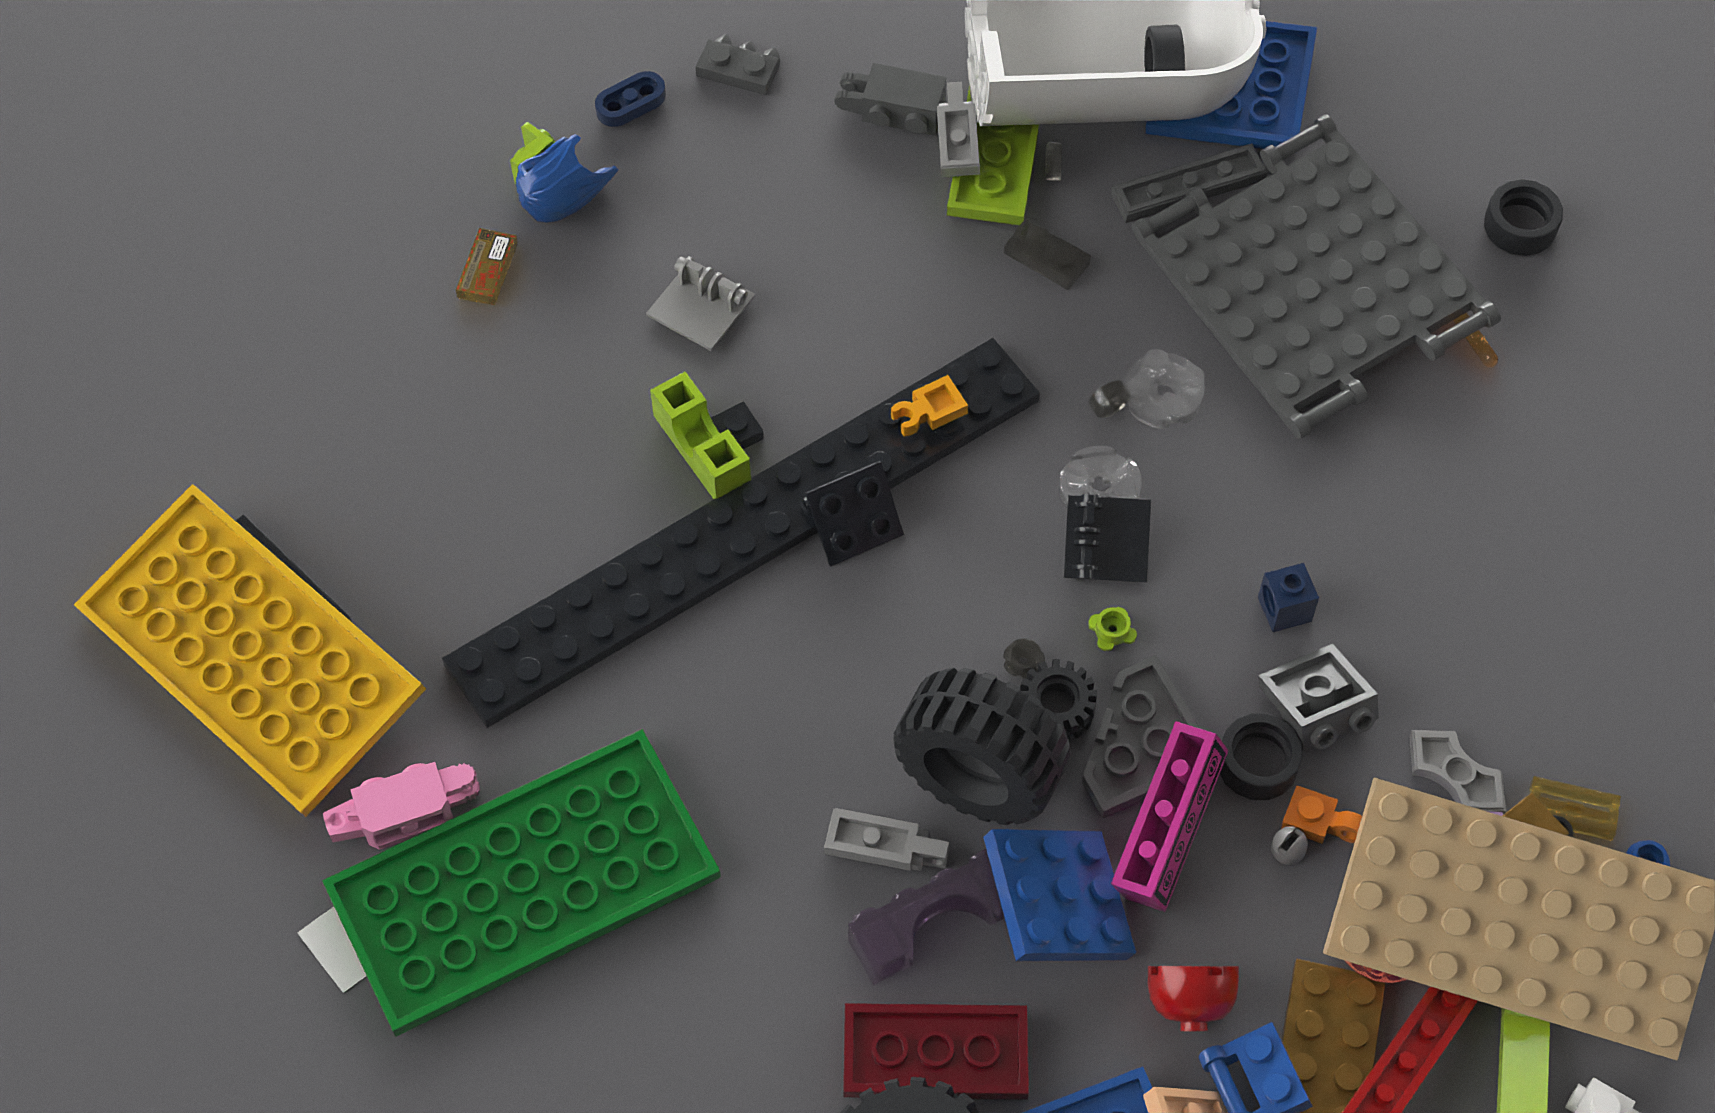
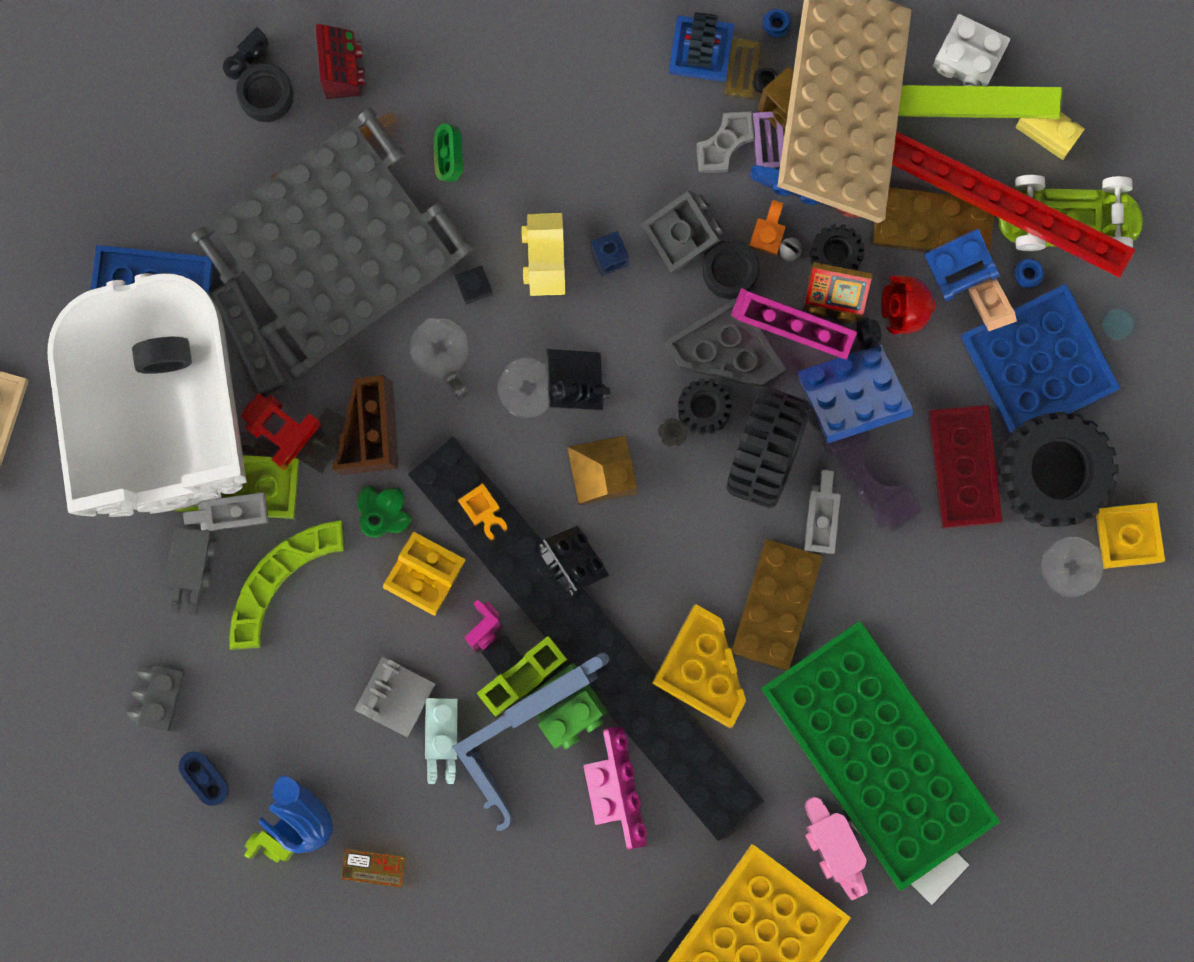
camera: 95 degrees left, 20 degrees up
(533, 542) = (614, 790): none -> dark pink bracket
(638, 348) = (440, 737): none -> light aqua hinge
(652, 489) = (571, 715): none -> bright green plate
(657, 431) = (514, 717): none -> sand blue hinge
(681, 660) = (703, 668): none -> yellow plate
(760, 770) = (776, 605): none -> pearl gold plate
(774, 398) = (483, 634): none -> dark pink bracket
(857, 349) = (424, 573): none -> yellow slope
(878, 187) = (272, 572): none -> lime tile
(948, 312) = (385, 508): none -> green plate
(978, 570) = (602, 470): none -> pearl gold slope
(1051, 200) = (290, 437): none -> red tile
(1058, 294) = (369, 428): none -> reddish brown wedge
(1112, 617) = (638, 381): lime plate -> none
(1154, 934) = (868, 332): none -> black plate
(1215, 888) = (837, 292): none -> slope
(1250, 437) = (473, 285): none -> black plate
(1286, 881) = (839, 235): none -> black tyre
(1290, 517) = (545, 254): none -> light yellow brick
(1421, 417) = (448, 153): none -> green plate
(1567, 289) = (339, 62): none -> dark red slope
(1584, 204) = (249, 49): none -> black plate
(1604, 747) = (701, 47): none -> blue plate

